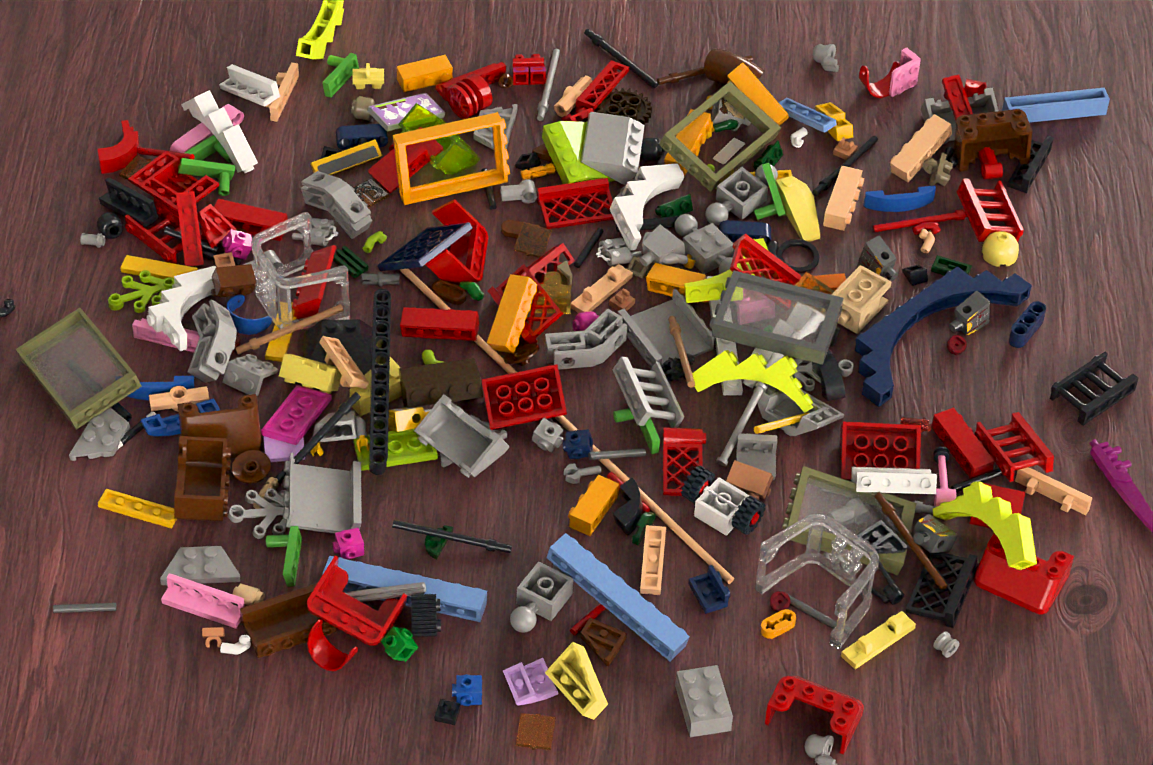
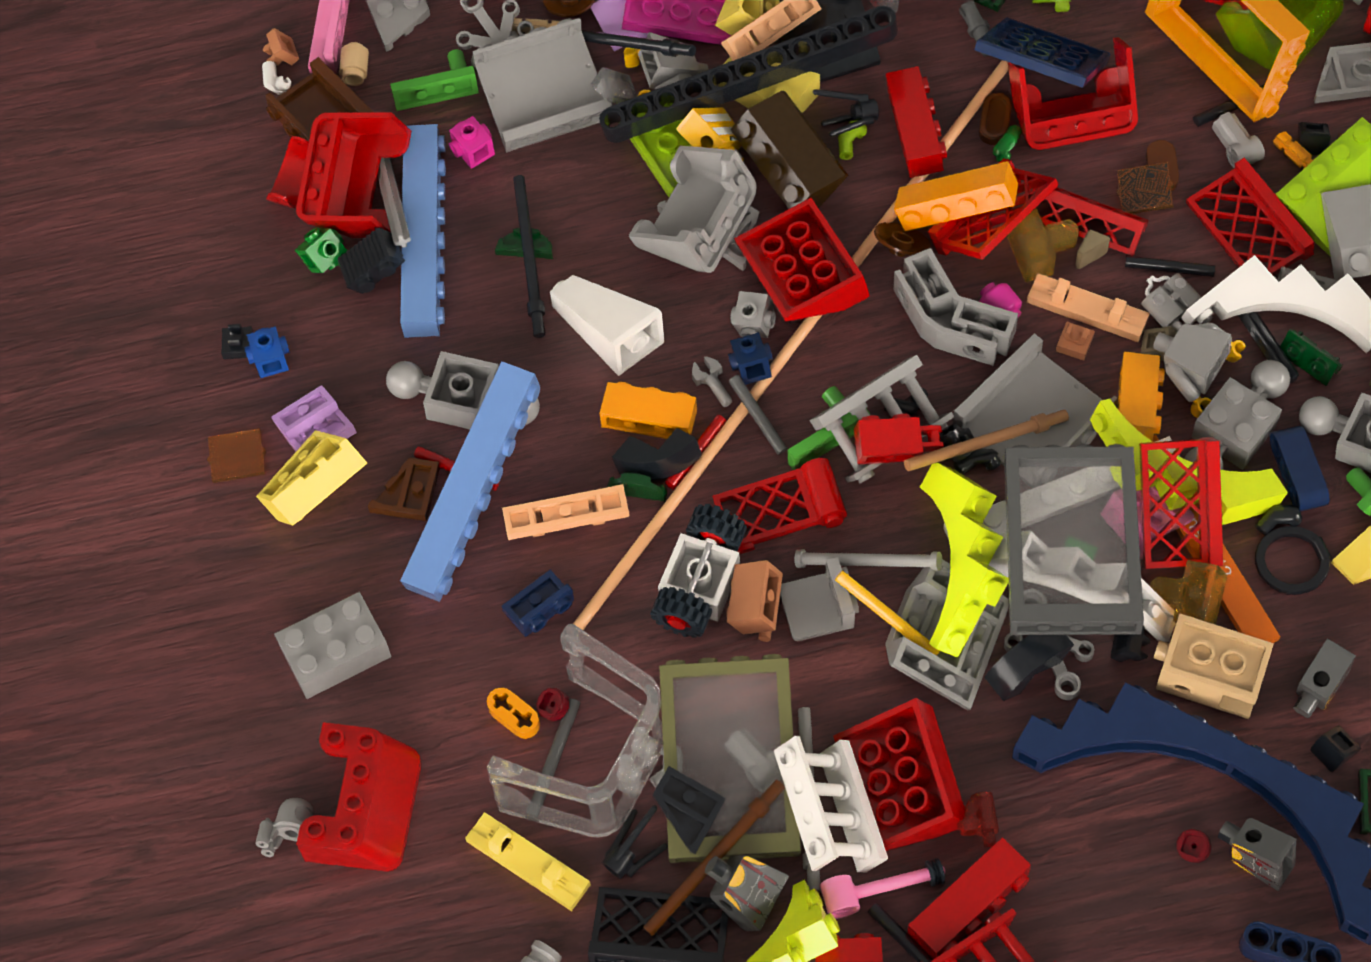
camera: 80 degrees right, 15 degrees up
(345, 457) = (614, 85): none -> clear slope
(418, 345) = (864, 110): none -> black plant
(522, 507) = (609, 322): none -> white slope
(669, 388) = (893, 439): none -> red brick

